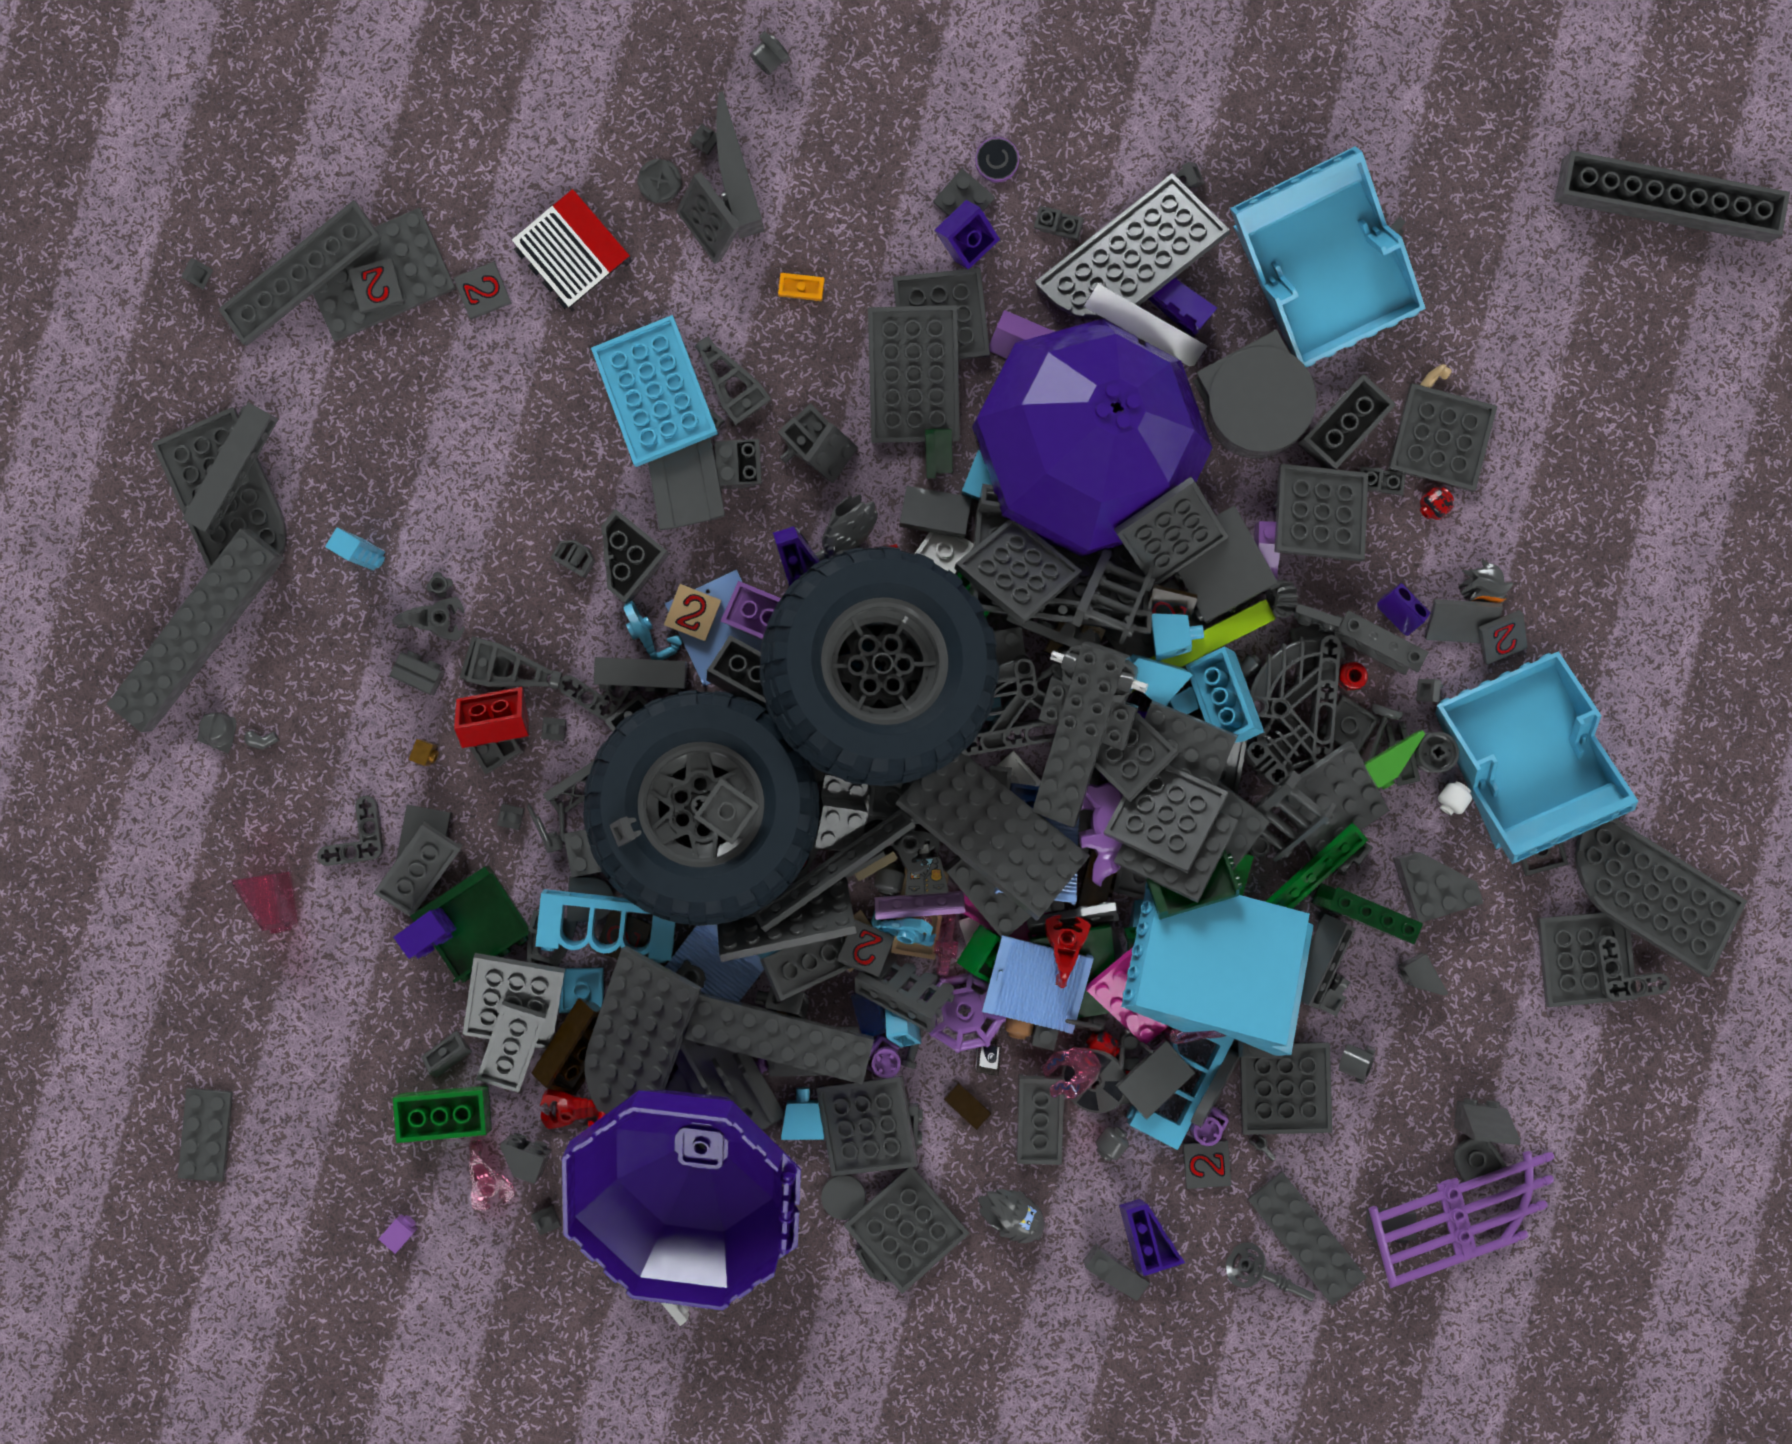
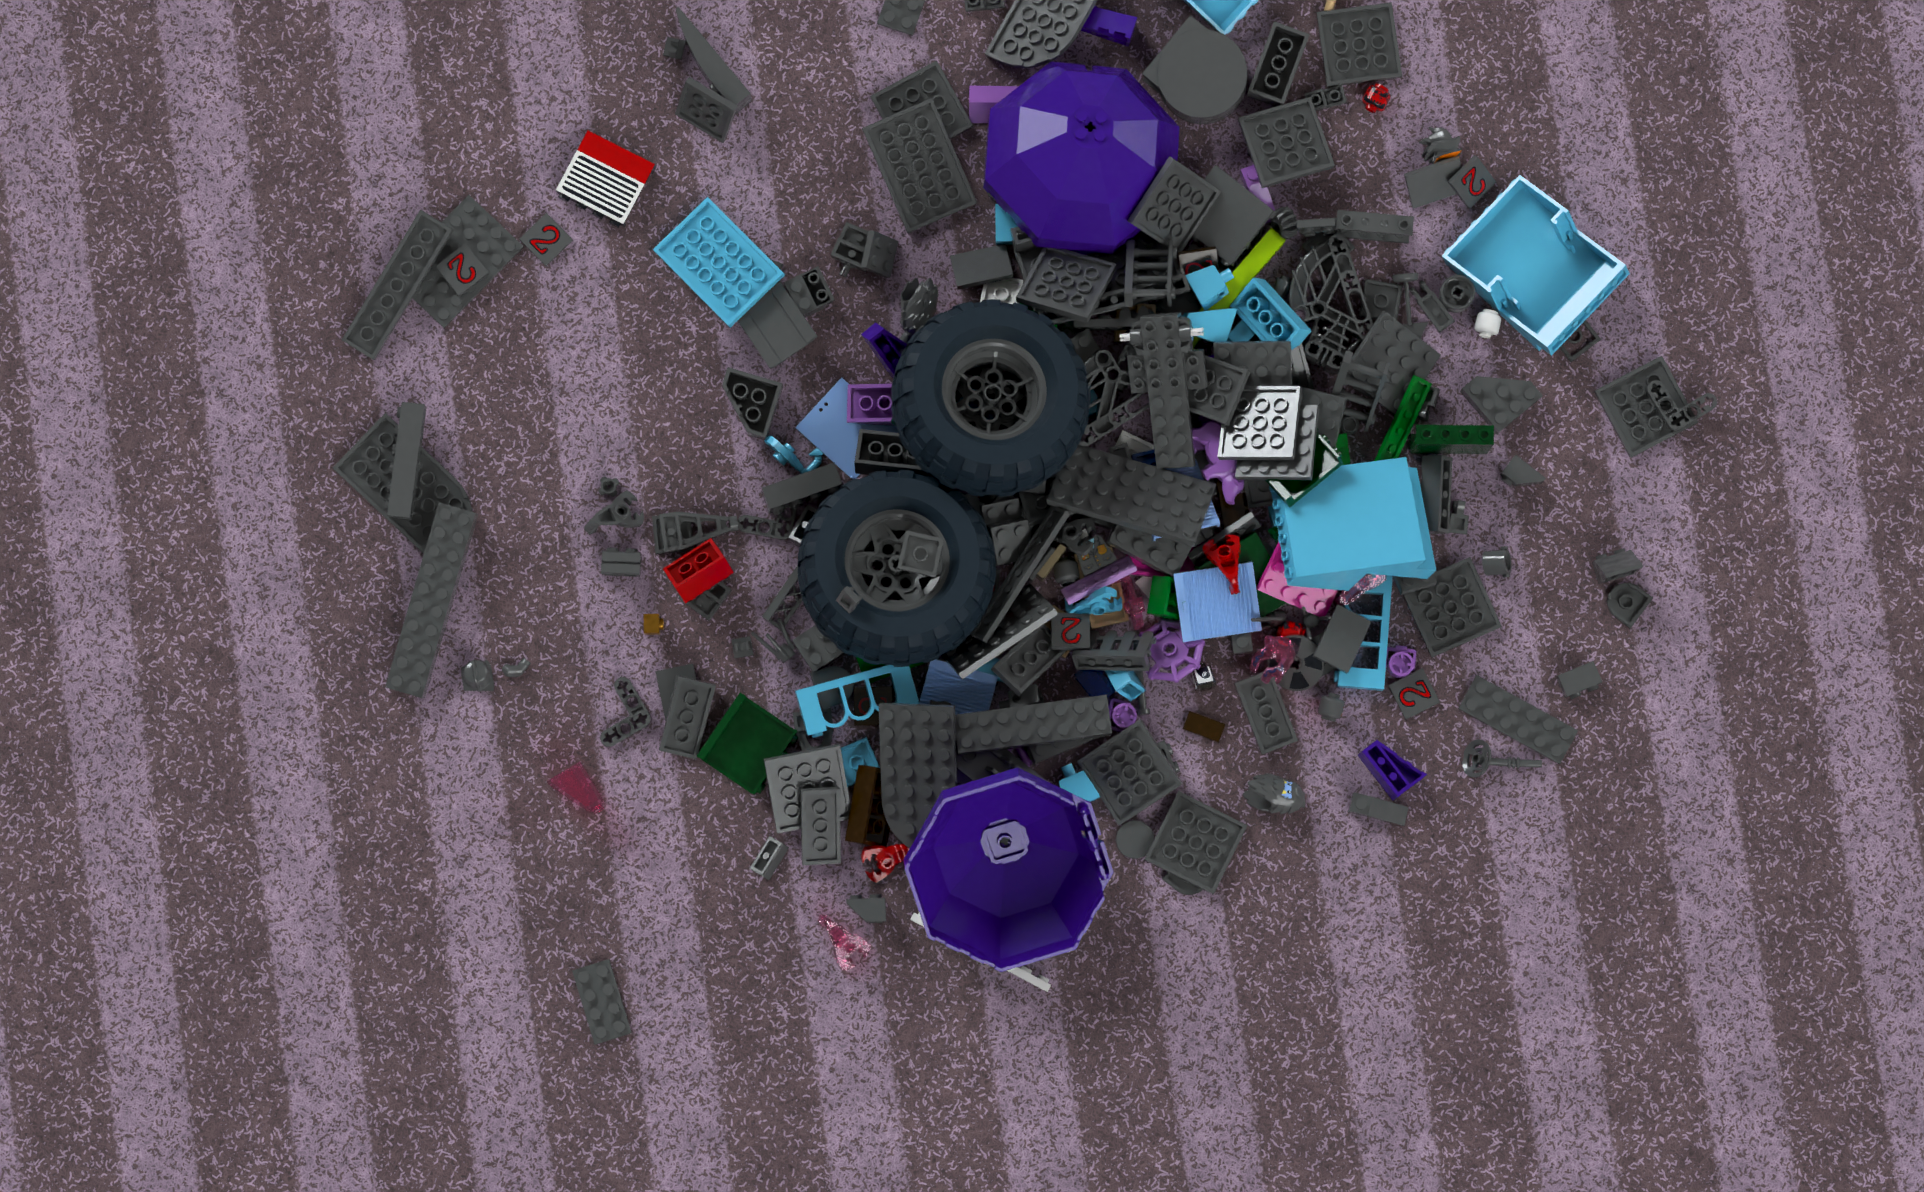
camera: 20 degrees left, 5 degrees down
(197, 273) = (312, 318): dark grey tile -> none
(355, 549) = (538, 481): medium azure brick -> none
(398, 1233) = (791, 1013): medium lavender brick -> none
(424, 933) = (716, 762): dark purple brick -> none
(442, 1114) = (787, 903): green brick -> none
(546, 1220) = (904, 956): dark grey tile -> none
(553, 729) = (748, 563): dark grey tile -> none
(574, 557) = (708, 420): dark grey piece -> none
(659, 181) = (651, 95): dark grey tile -> none
(692, 612) = (821, 425): tan tile -> none
(748, 401) = (794, 243): dark grey plate -> none
(801, 286) = (800, 133): light orange plate -> none
(938, 451) = (964, 218): dark green panel -> none
(967, 234) = (916, 39): dark purple brick -> none
(1018, 1029) = (1218, 645): medium nougat head -> none
(1144, 325) = (1087, 53): white sticker -> none
(1215, 1088) = (1393, 627): dark grey beam -> none
(1261, 1145) = (1450, 660): dark grey hand -> none
(1359, 675) = (1365, 267): red head -> none
(1390, 763) = (1423, 316): bright green slope -> none
(1403, 609) = (1384, 192): dark purple piece -> none
(1429, 690) = (1431, 247): dark grey tile -> none
(1457, 1219) = (1629, 654): medium lavender piece -> none
(1657, 894) = (1677, 333): dark grey plate -> none

